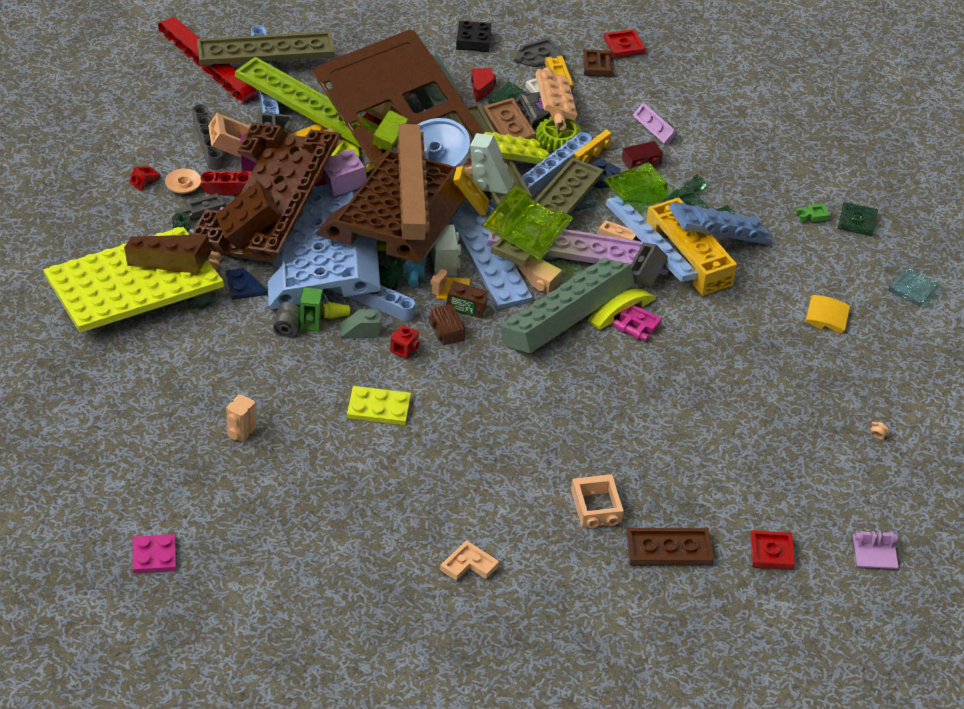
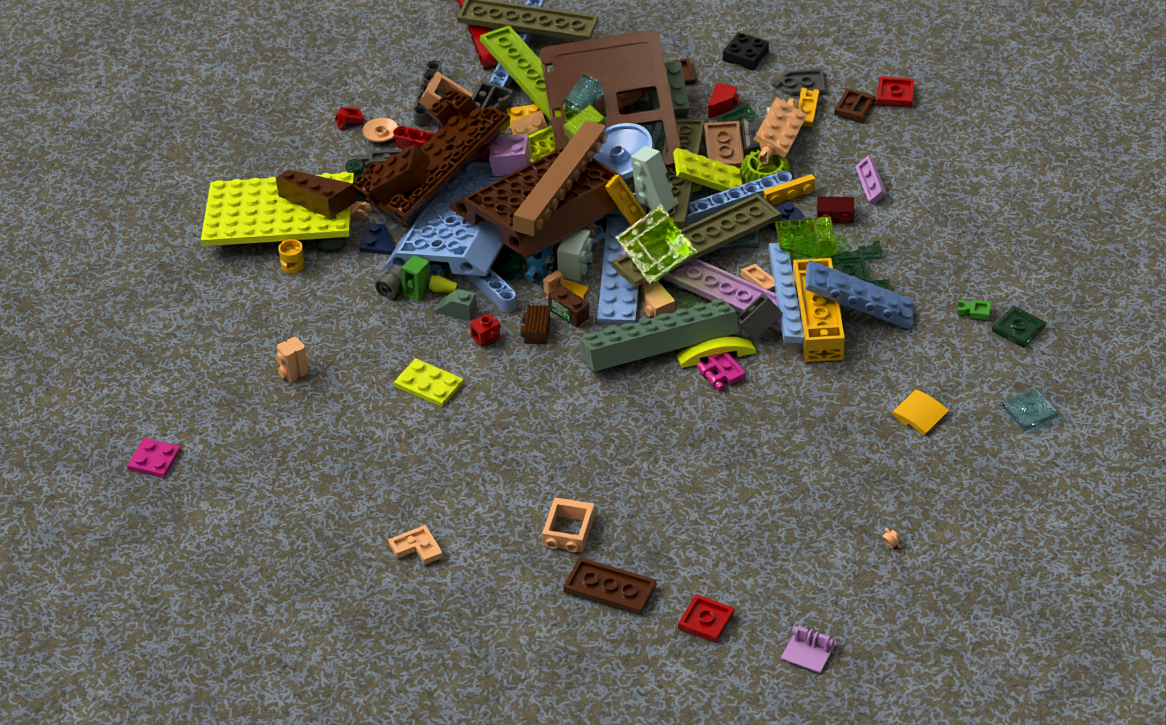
camera: 30 degrees right, 0 degrees up
(173, 320) = (291, 256): none -> yellow wheel
(376, 102) = (583, 94): none -> clear light blue brick

